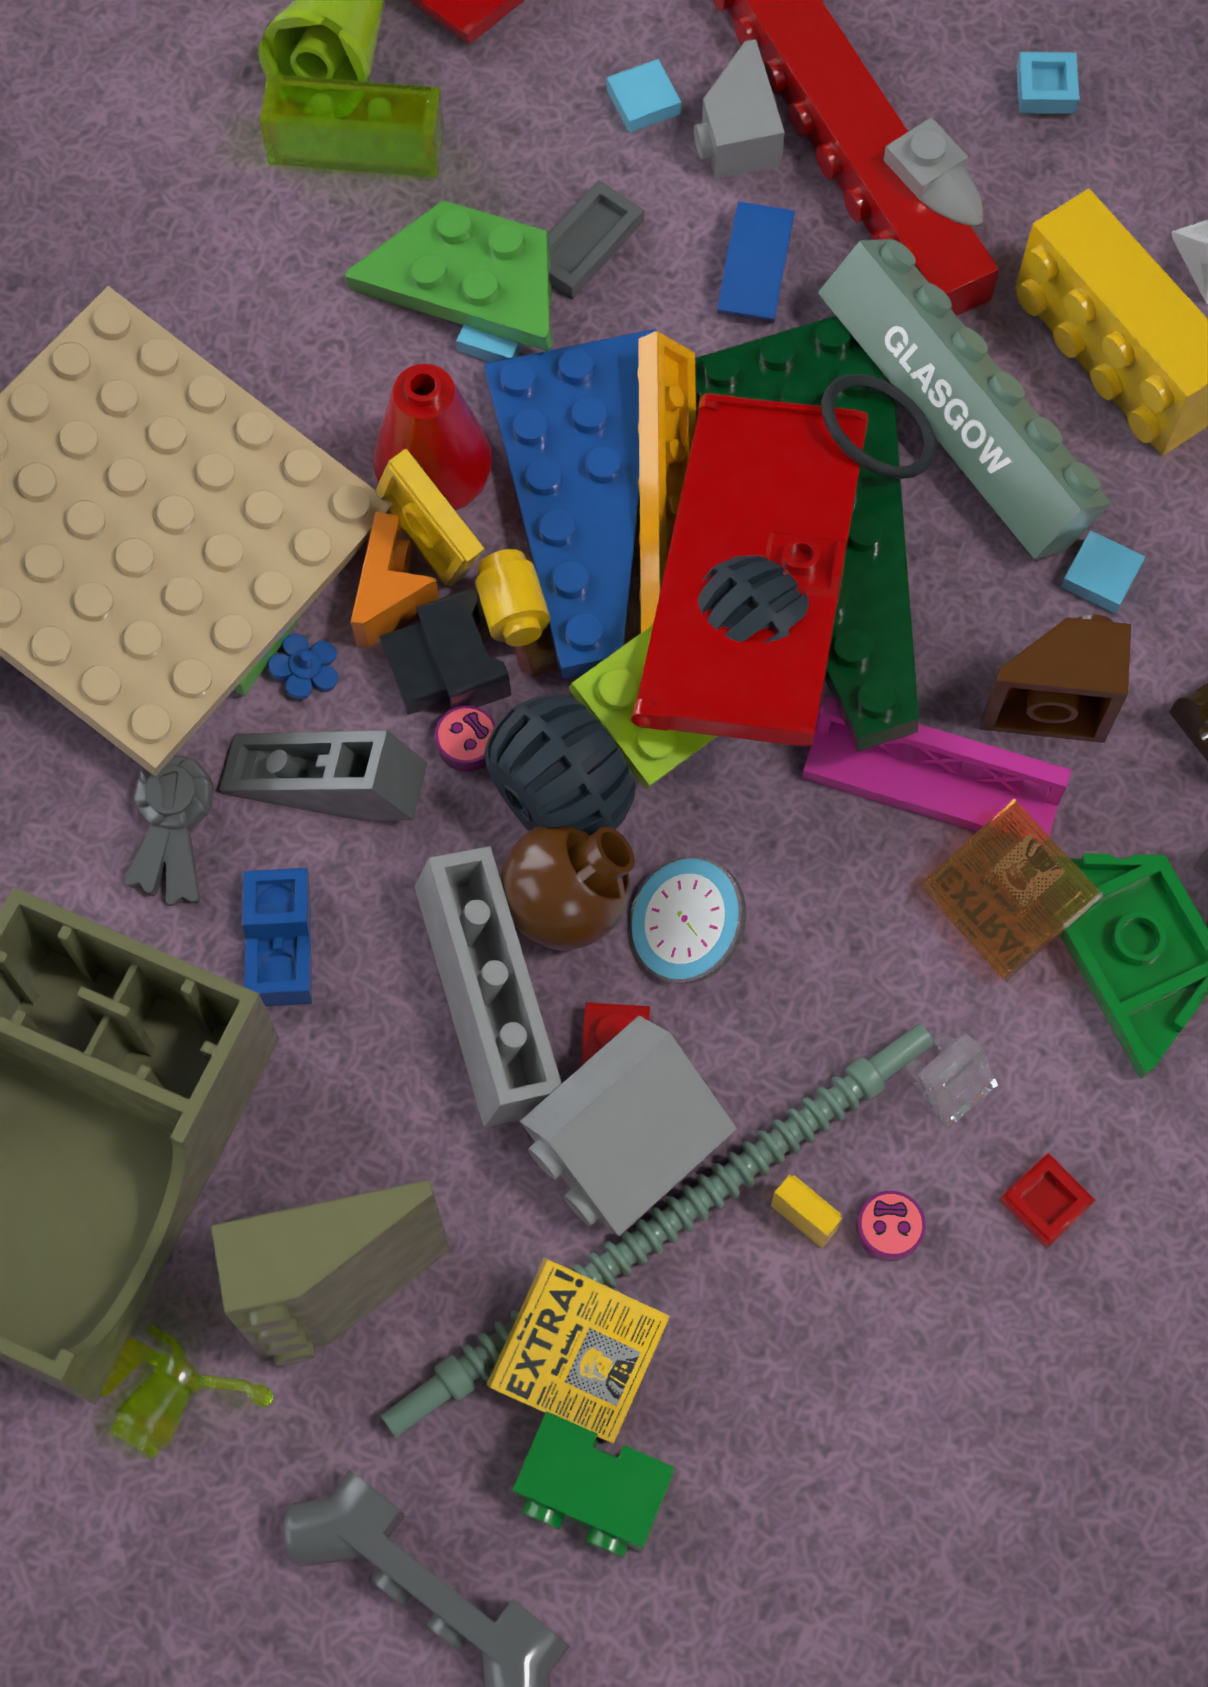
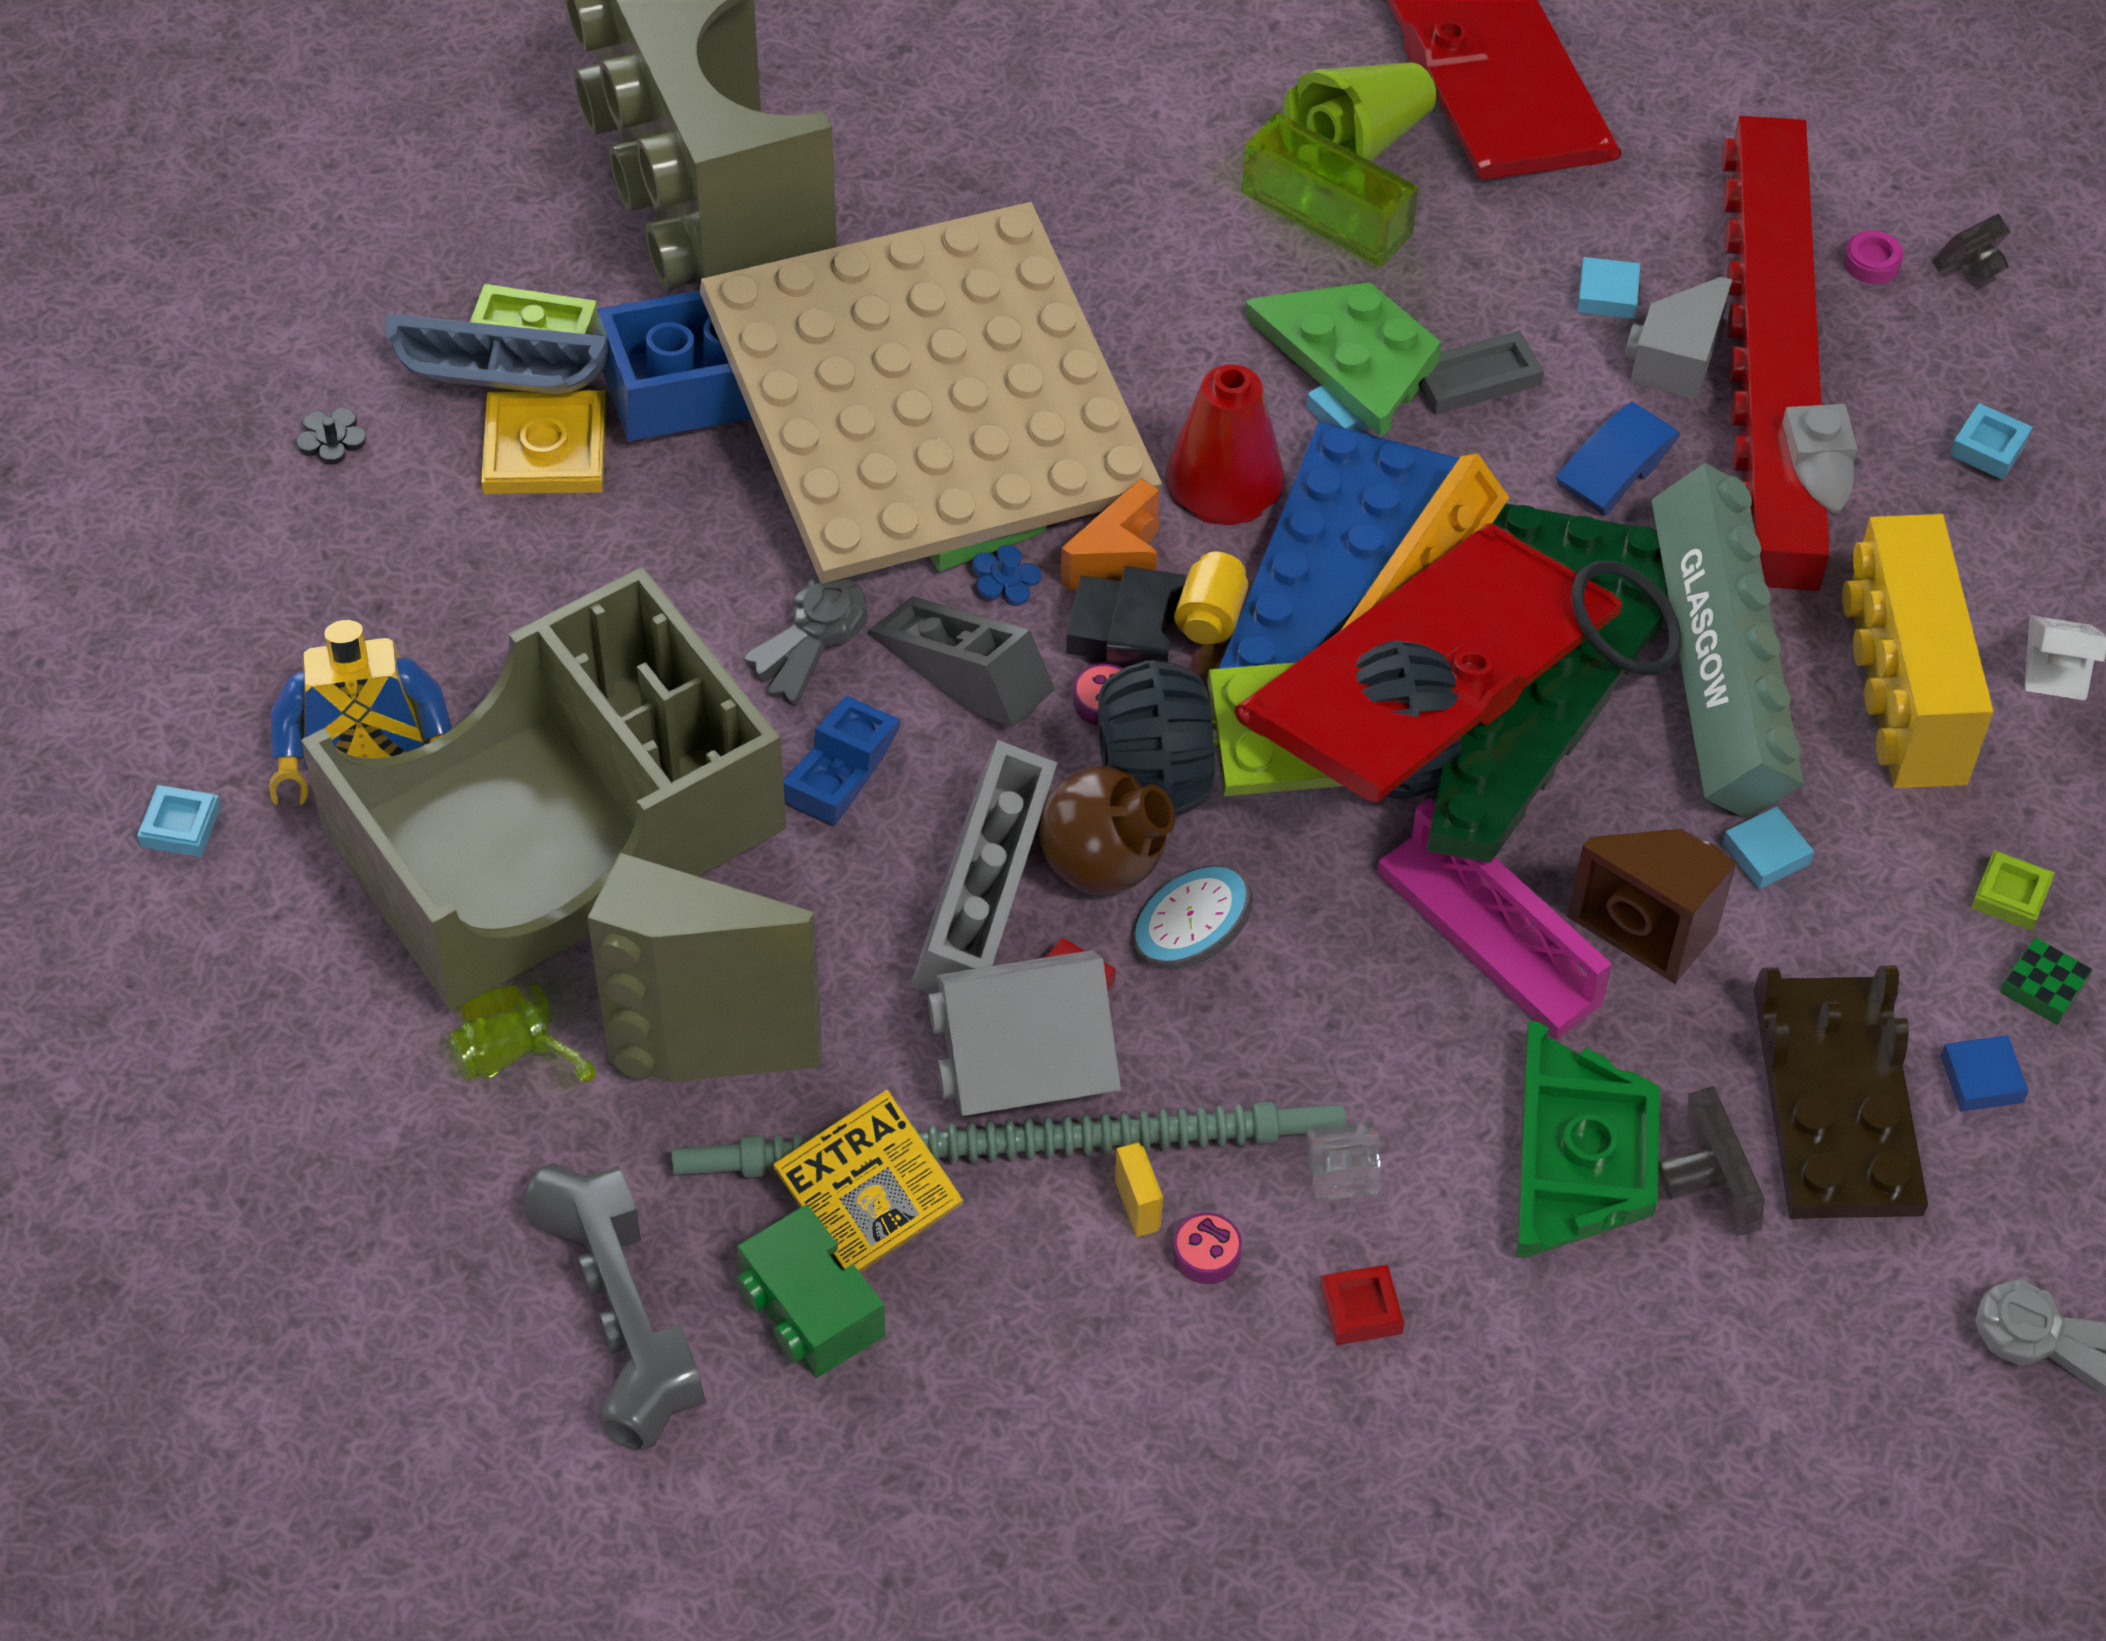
camera: 30 degrees right, 15 degrees down
(429, 519) = (1178, 498): yellow tile -> none
(1010, 890) = (1497, 1041): clear orange tile -> none

